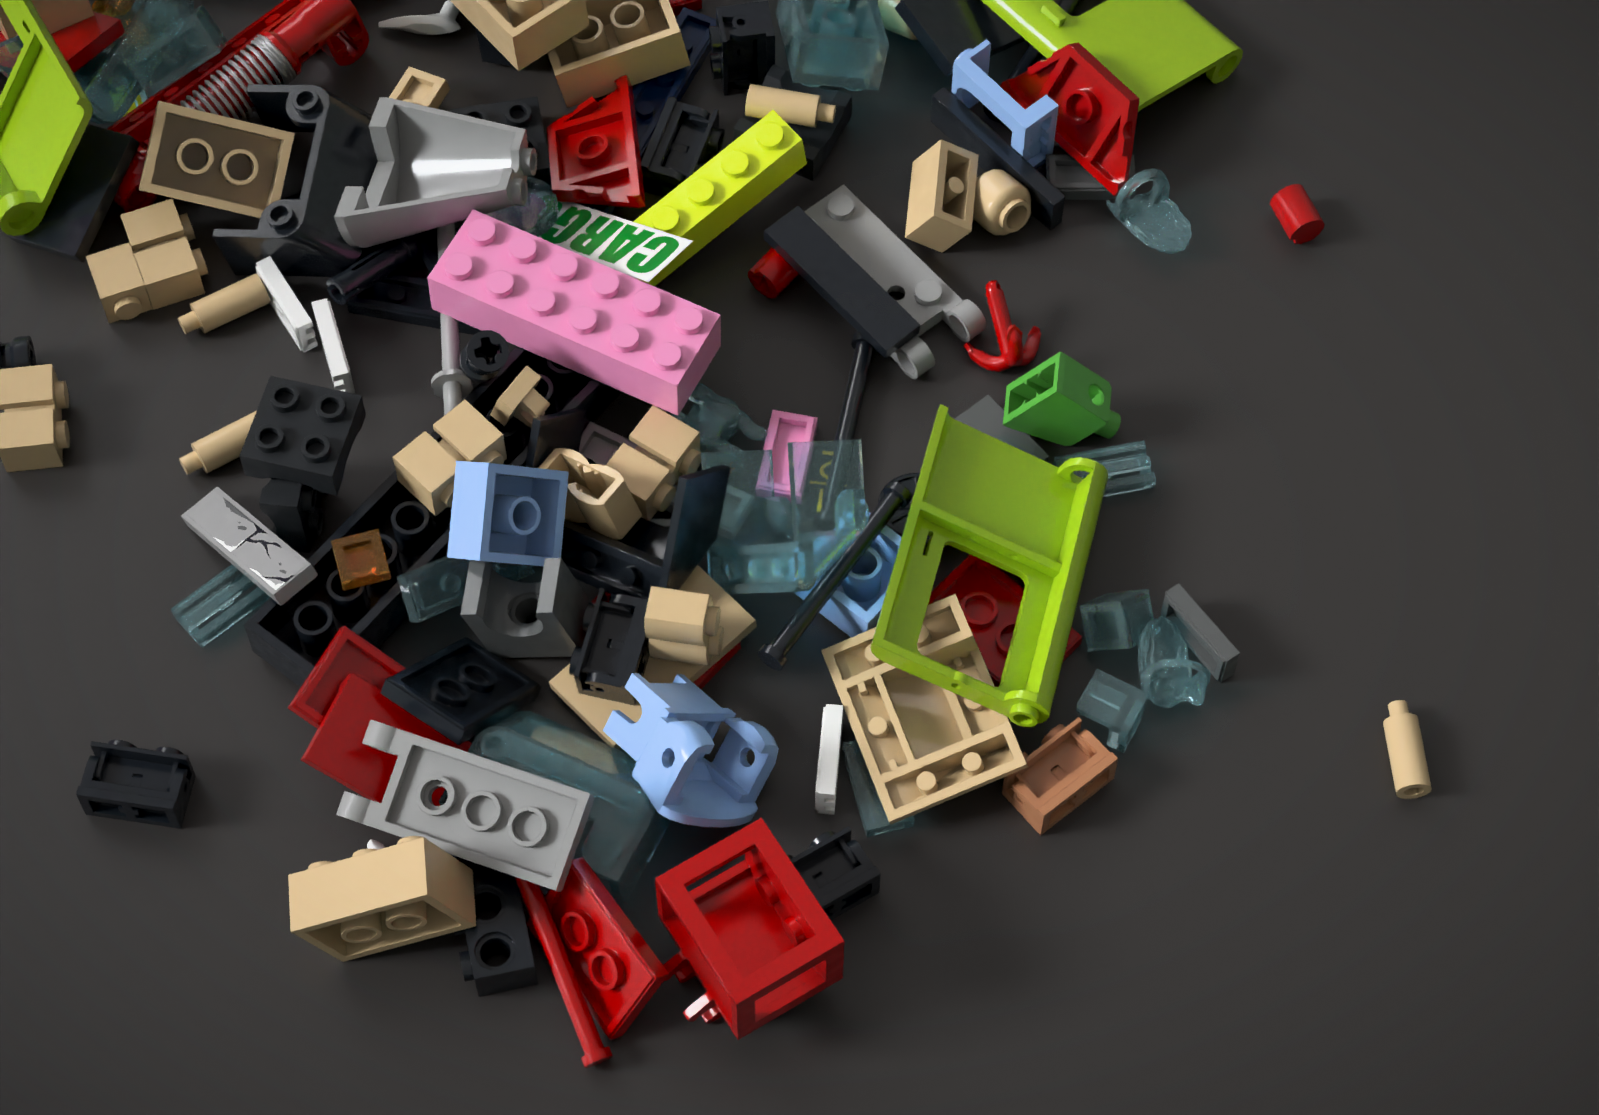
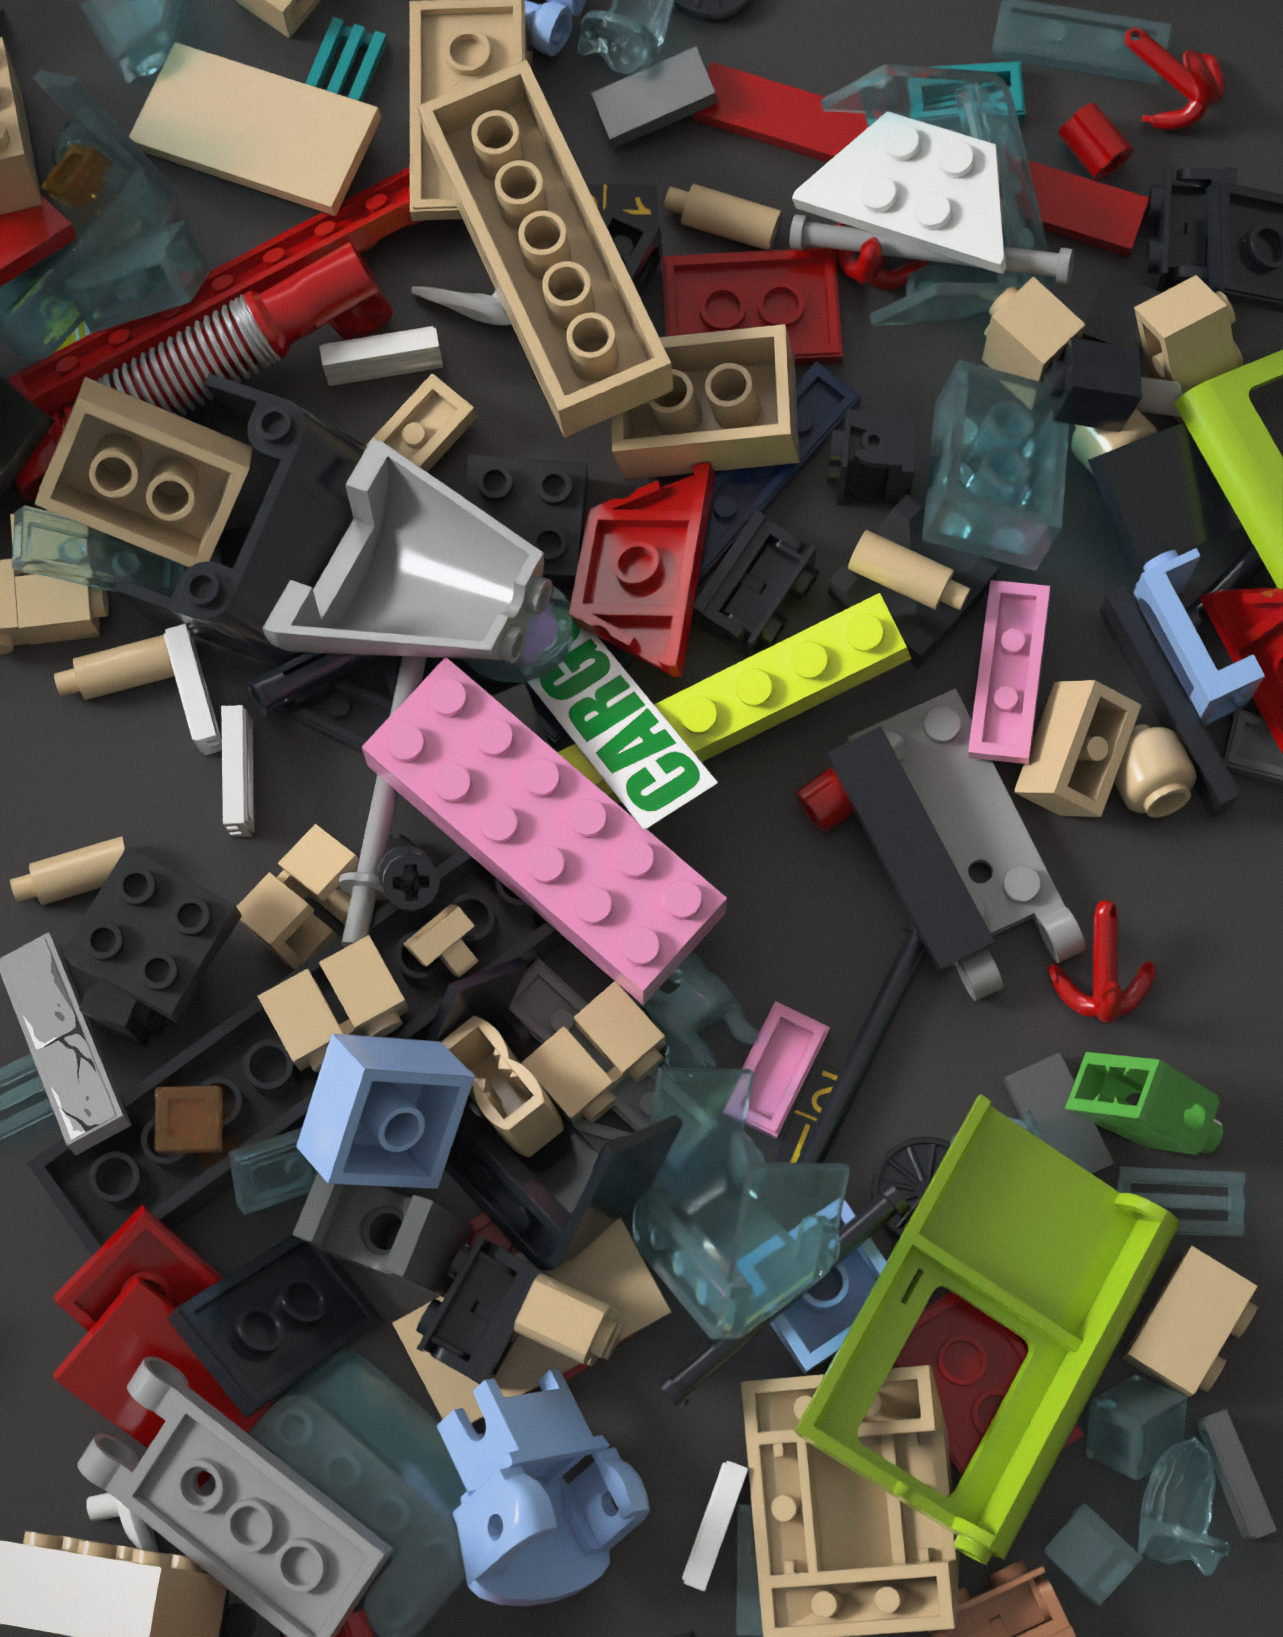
camera: 20 degrees right, 15 degrees up
(181, 220) = (82, 555): none -> clear light blue tile
(368, 65) = (381, 356): none -> white tile
(407, 403) = (277, 907): none -> tan piece
(879, 162) = (1009, 672): none -> bright pink plate
(1135, 542) = (1191, 1323): none -> tan brick

